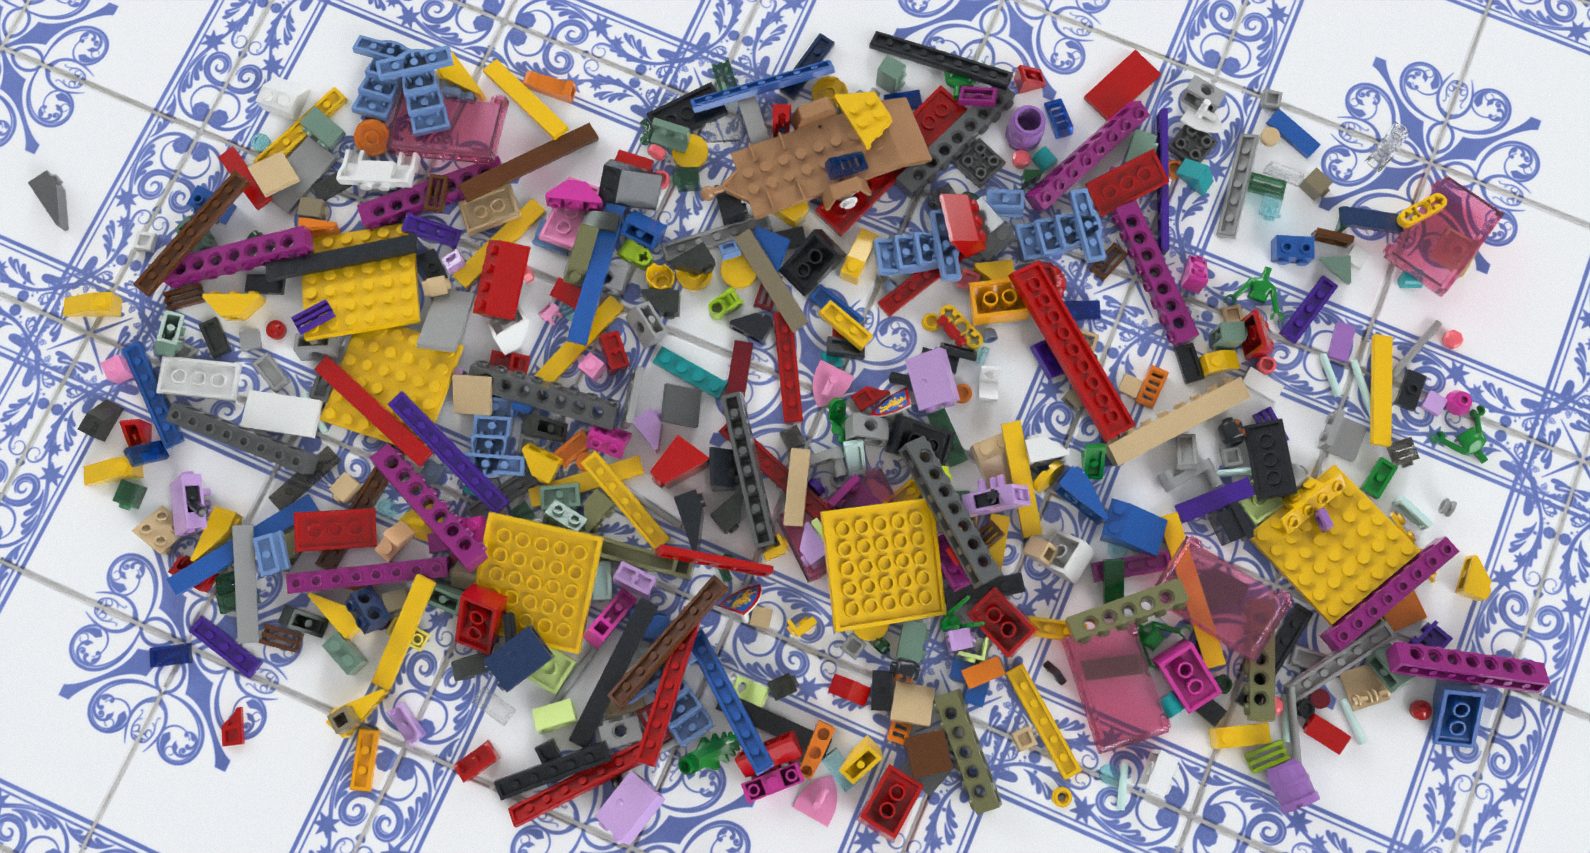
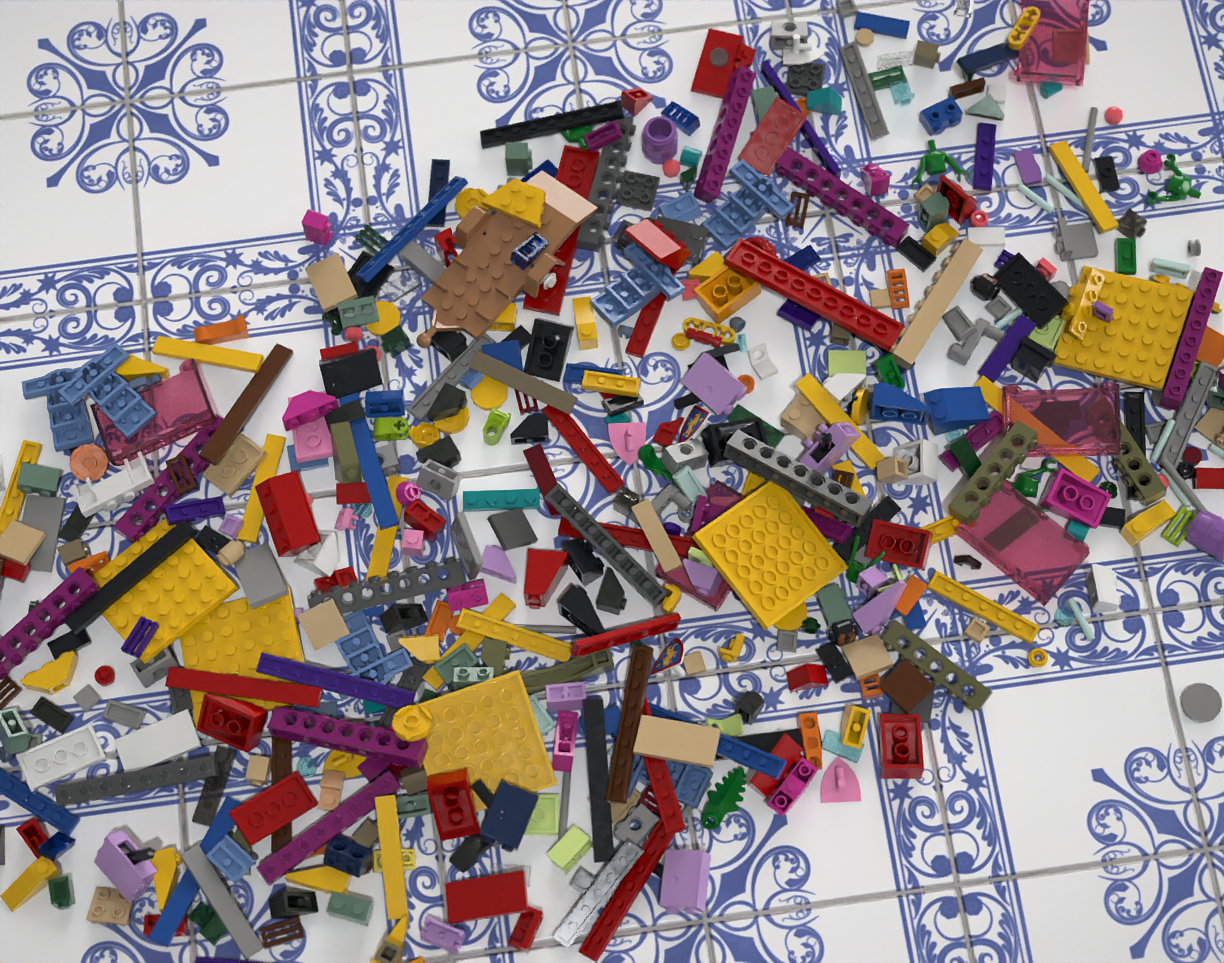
camera: 30 degrees left, 10 degrees down
(347, 435) = (232, 722): none -> red slope
(460, 715) = (486, 897): none -> red tile
(483, 530) = (412, 723): none -> yellow tile
(613, 320) = (407, 493): none -> dark pink cone
(666, 95) = (331, 282): none -> tan tile
(682, 39) = (317, 227): none -> dark pink brick
(696, 684) = (677, 741): none -> tan tile
(947, 671) = (878, 610): none -> lavender slope
(1062, 429) = (846, 362): none -> yellowish green tile
(1126, 81) = (718, 57): none -> clear light blue tile
(1149, 93) = (744, 56): none -> red plate
(1297, 447) = (1046, 269): none -> coral plate
(1301, 669) = (1162, 440): none -> light aqua piece
(1433, 403) = (1131, 173): lavender tile -> none

